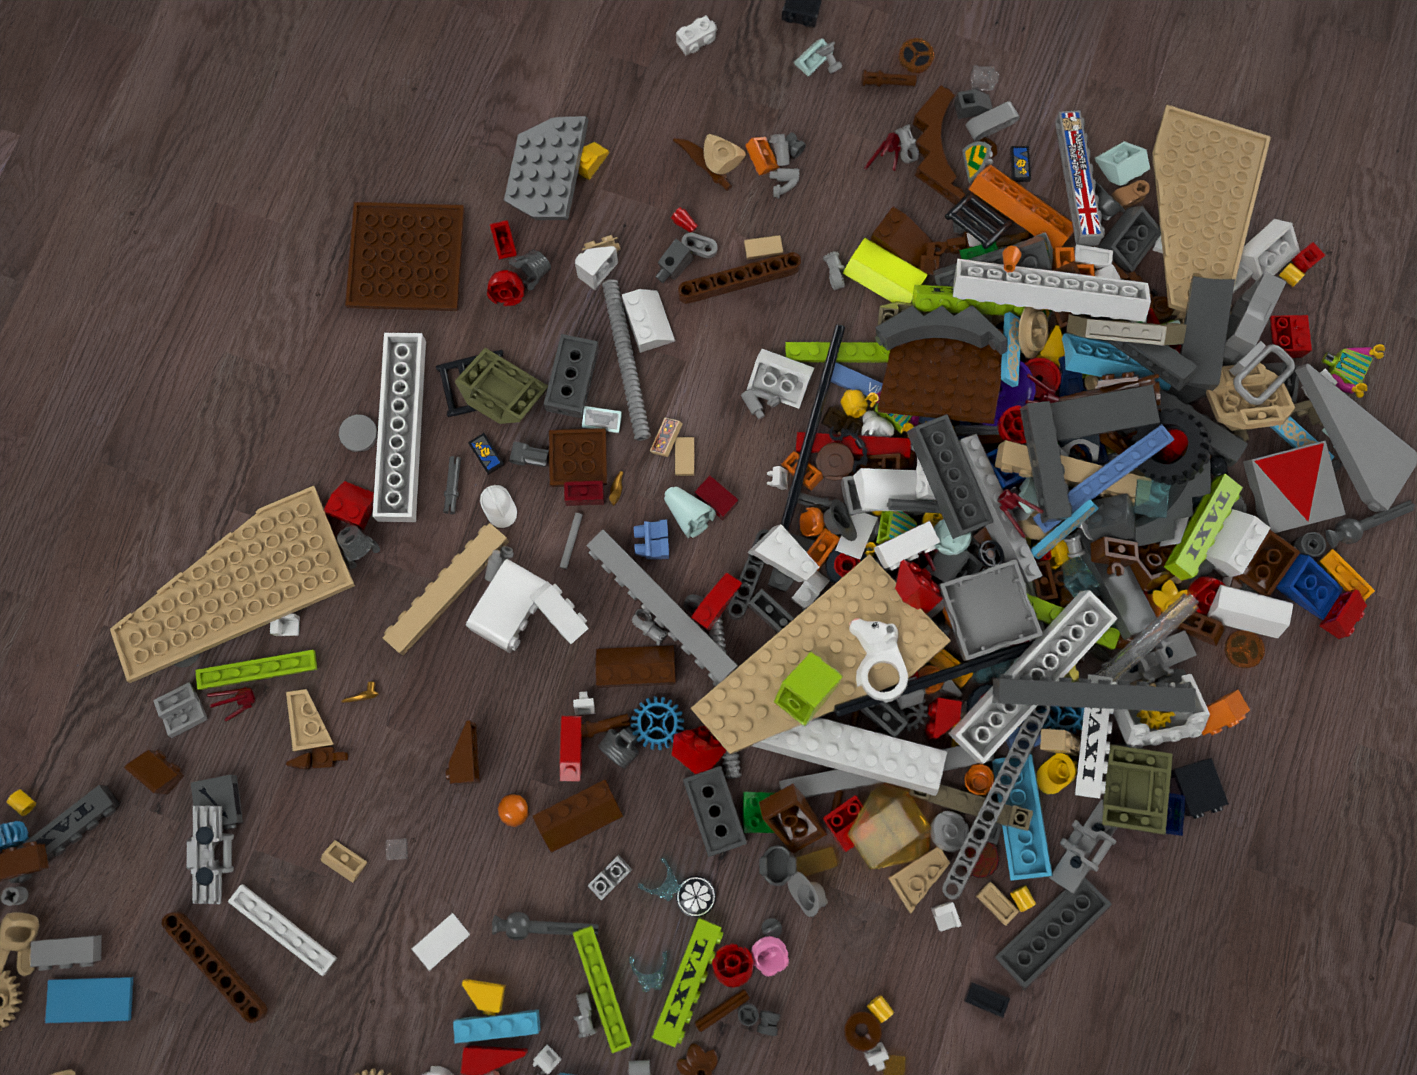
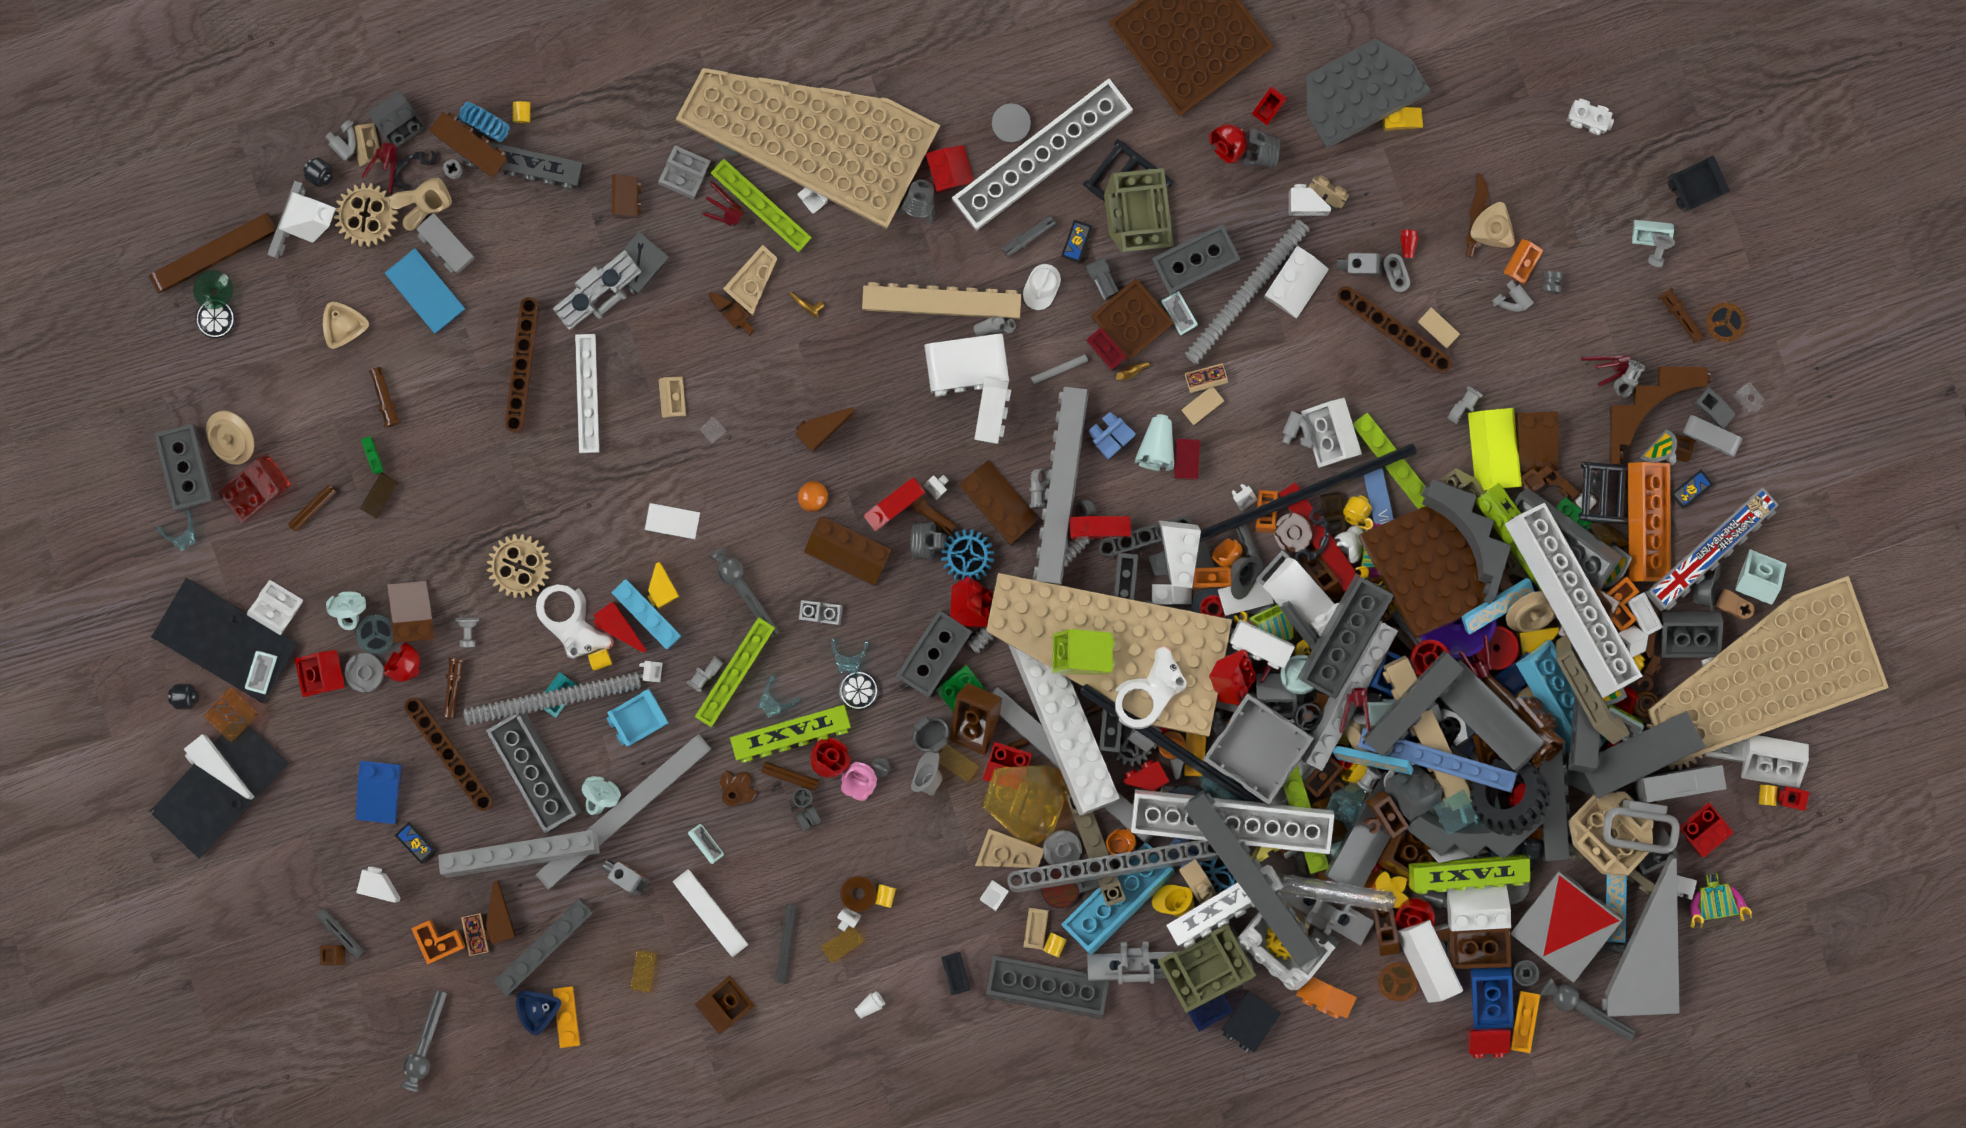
camera: 55 degrees right, 10 degrees up
(781, 149) = (1539, 273): light grey plant -> none
(1011, 257) = (1575, 547): orange cone -> none

